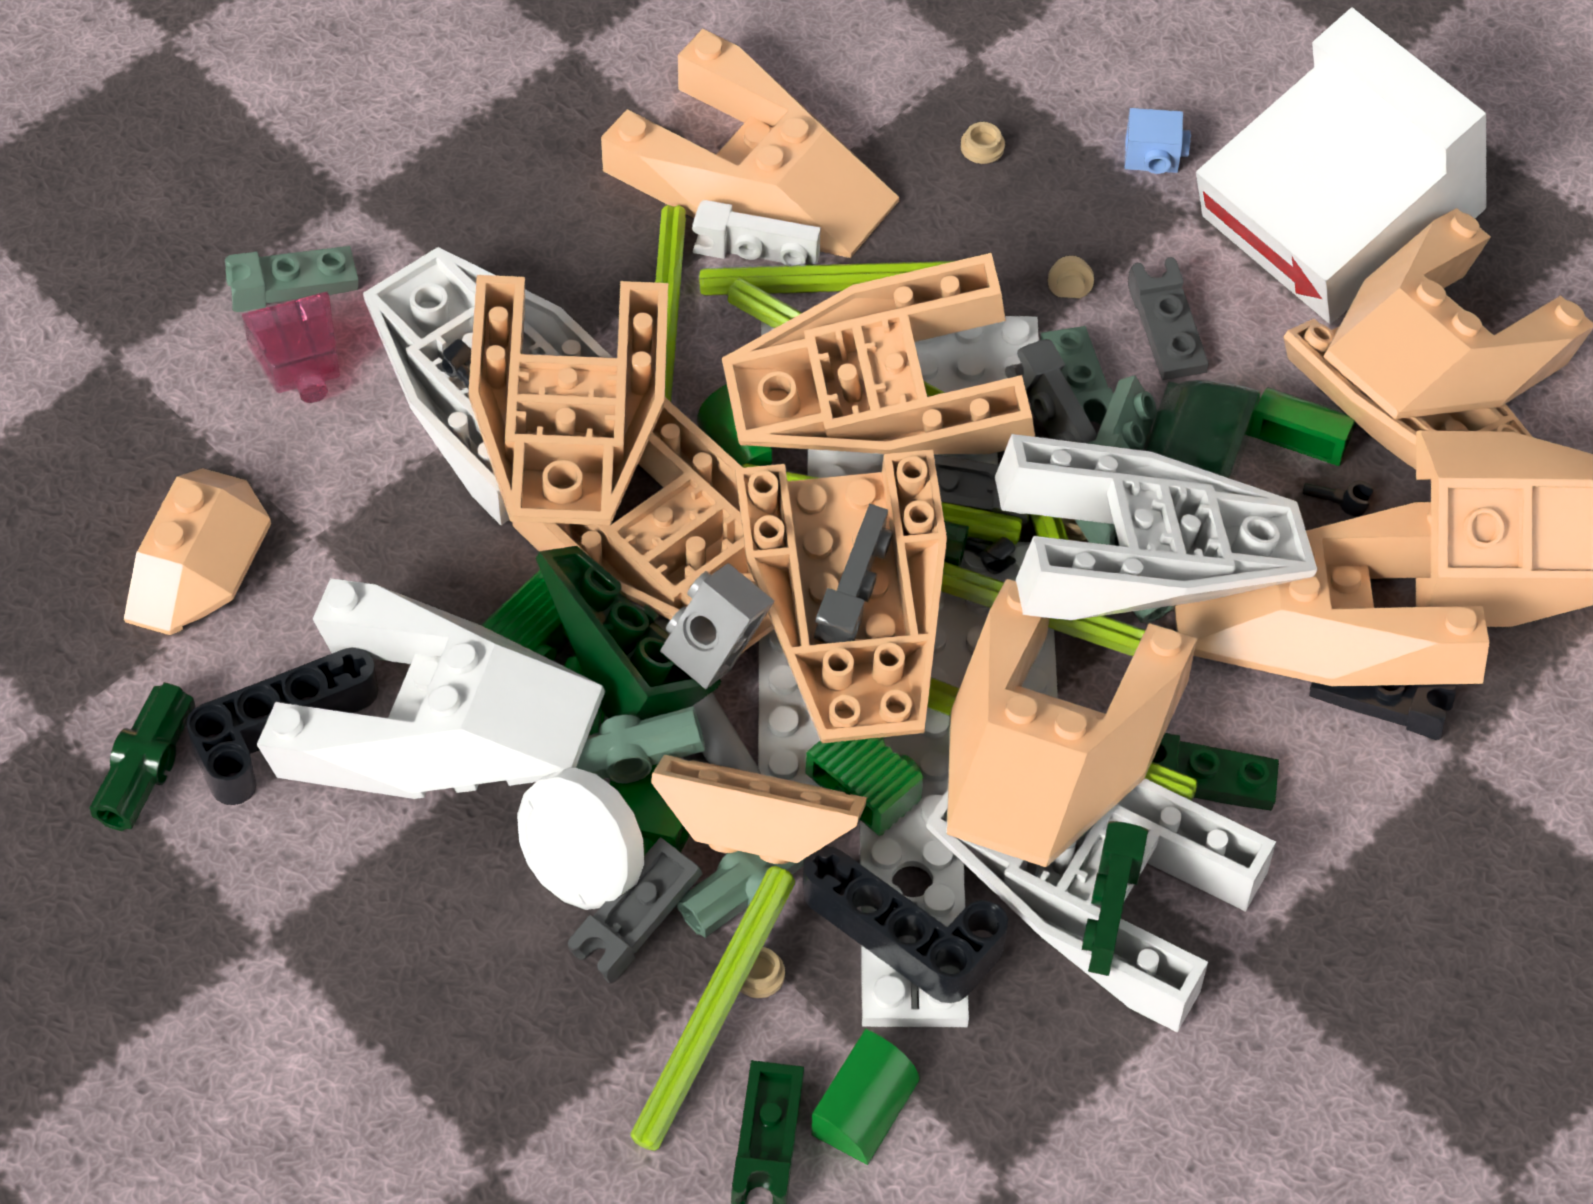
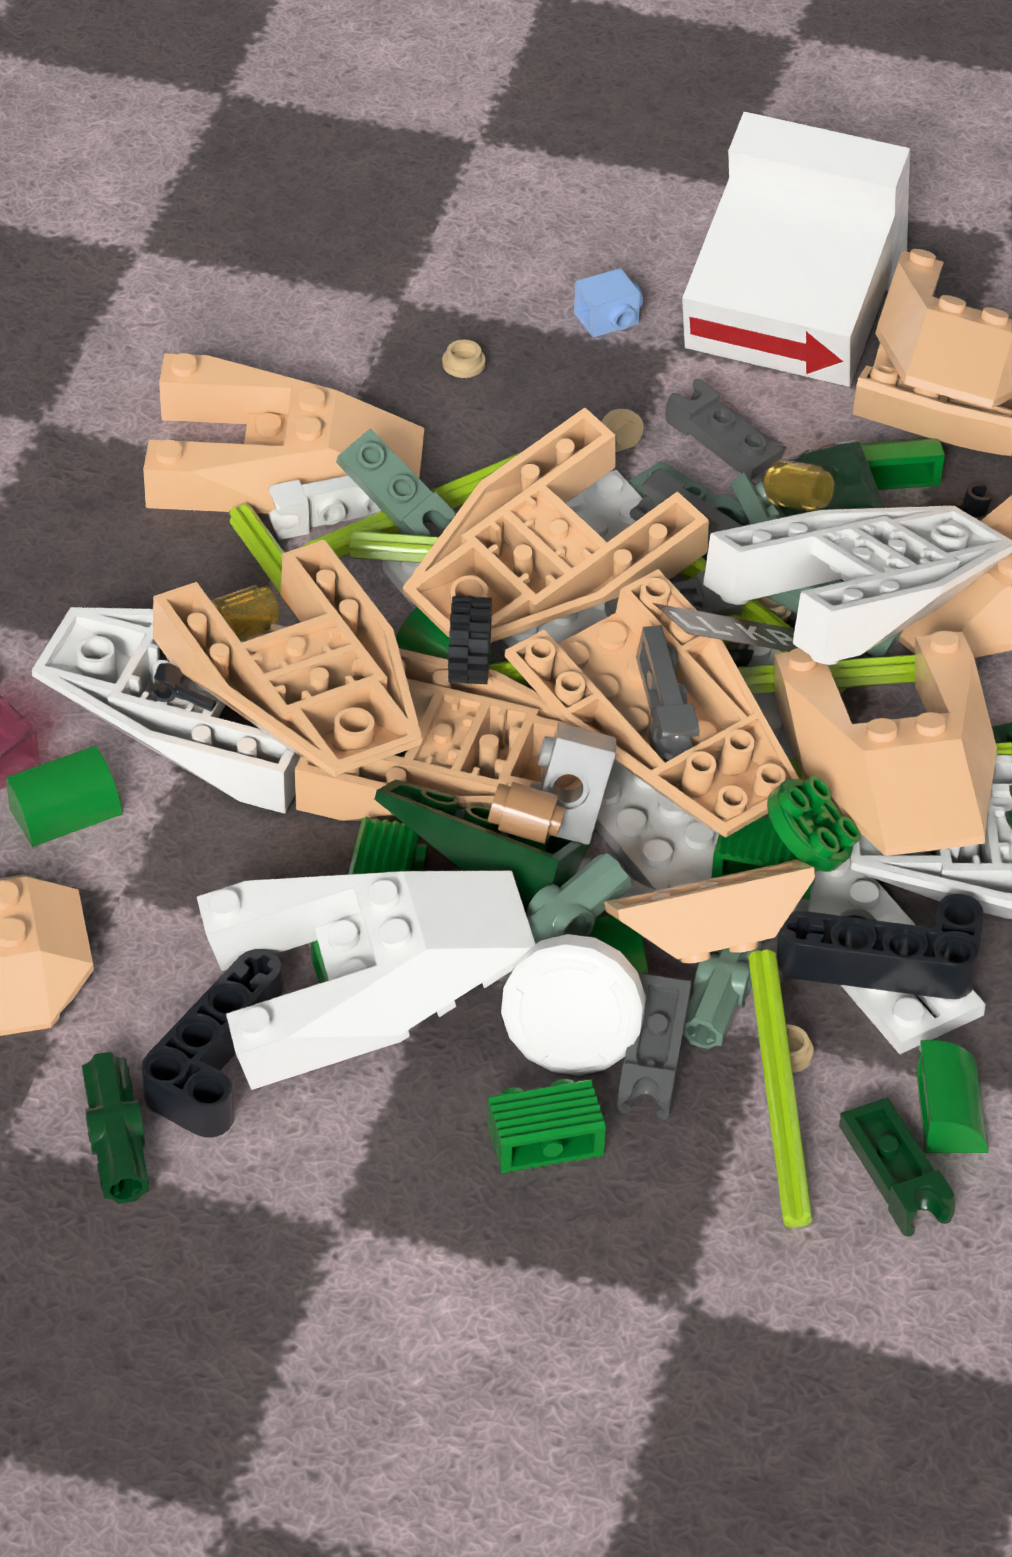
camera: 30 degrees left, 10 degrees down
(324, 422) = (63, 796): none -> green brick
(491, 937) = (545, 1125): none -> green brick
(562, 322) = (249, 610): none -> clear yellow brick
(649, 635) = (526, 812): none -> medium nougat brick
(729, 439) = (469, 639): none -> black tyre
(806, 245) = (393, 486): none -> sand green plate
(900, 769) = (812, 823): none -> green tile
(951, 534) = (730, 628): none -> sticker
(1158, 415) = (798, 485): none -> clear yellow brick

